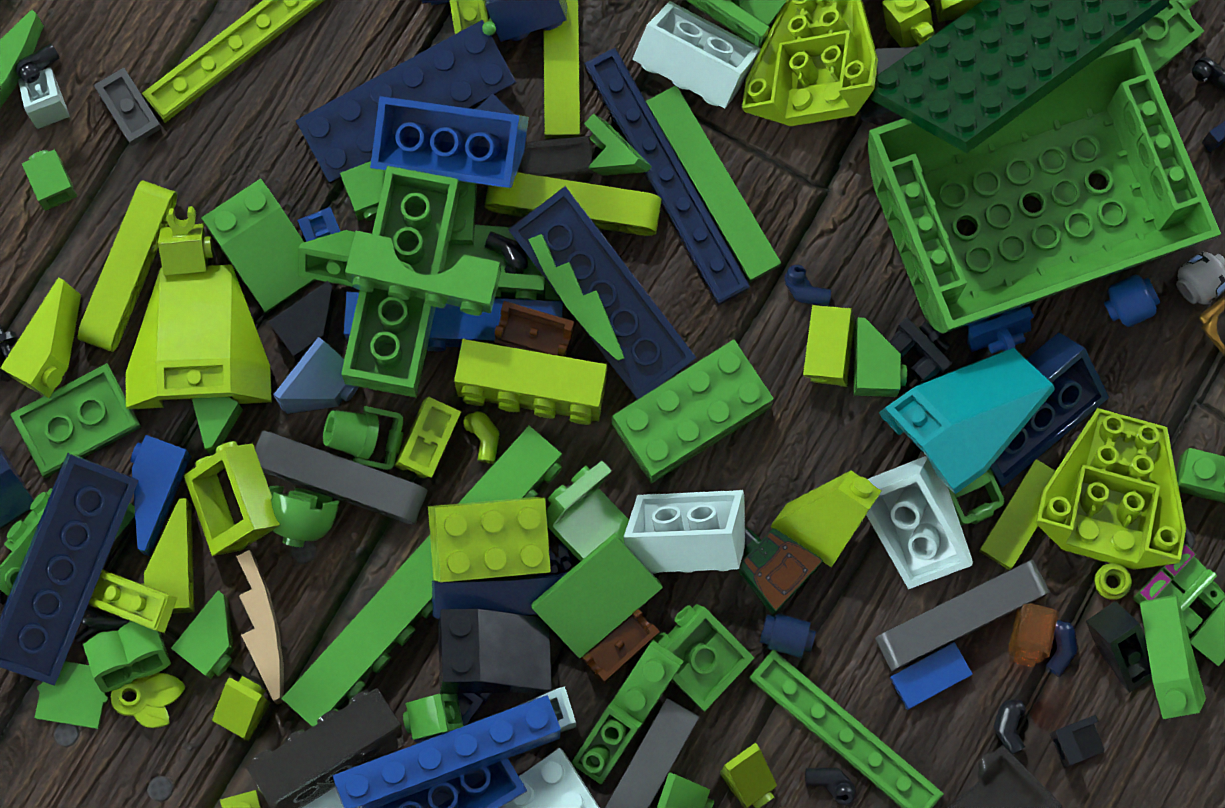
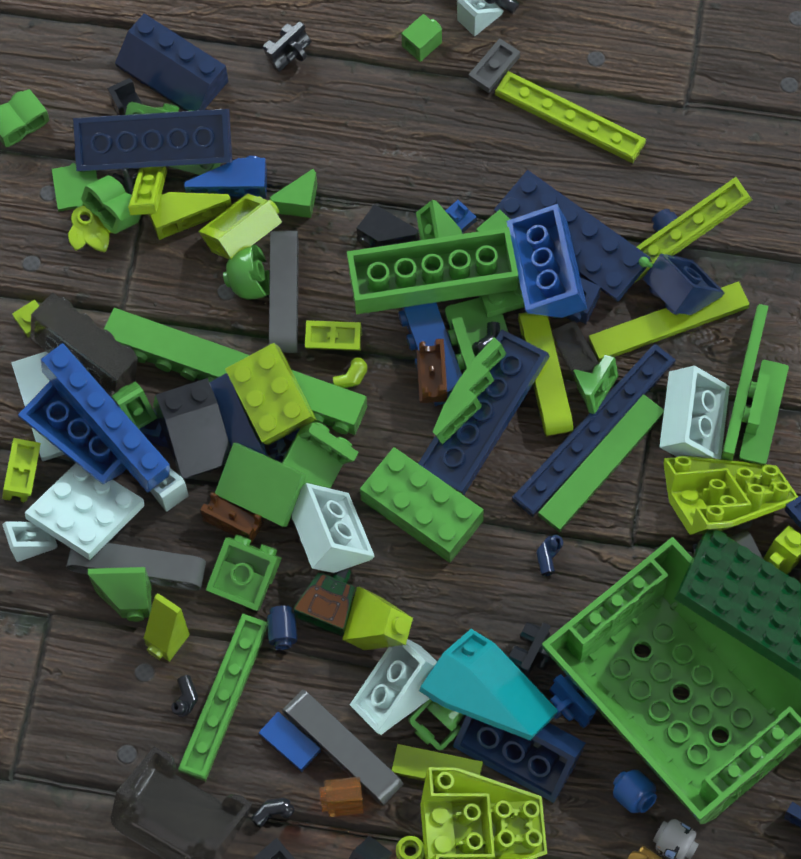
camera: 75 degrees right, 10 degrees down
(46, 343) = (308, 77): lime slope -> none
(75, 420) = (264, 118): bright green tile -> none
(126, 266) = (382, 107): lime beam -> none
(184, 245) = (407, 133): lime brick -> none
(197, 343) = (345, 170): lime wedge -> none
(208, 638) = (142, 251): bright green slope -> none
(241, 707) = (100, 287): lime slope -> none
(259, 244) = (432, 174): bright green slope -> none
(264, 639) = (154, 286): tan slope -> none
(315, 381) = (336, 240): medium blue slope -> none
(358, 435) = (316, 287): bright green piece -> none
(467, 284) = (442, 303): bright green arch -> none
(530, 381) = (397, 386): lime brick -> none
(627, 712) = (184, 537): bright green slope -> none
(829, 345) = (510, 584): lime hinge -> none
(876, 363) = (507, 619): bright green slope -> none
(1066, 648) = (348, 831): dark blue arm -> none

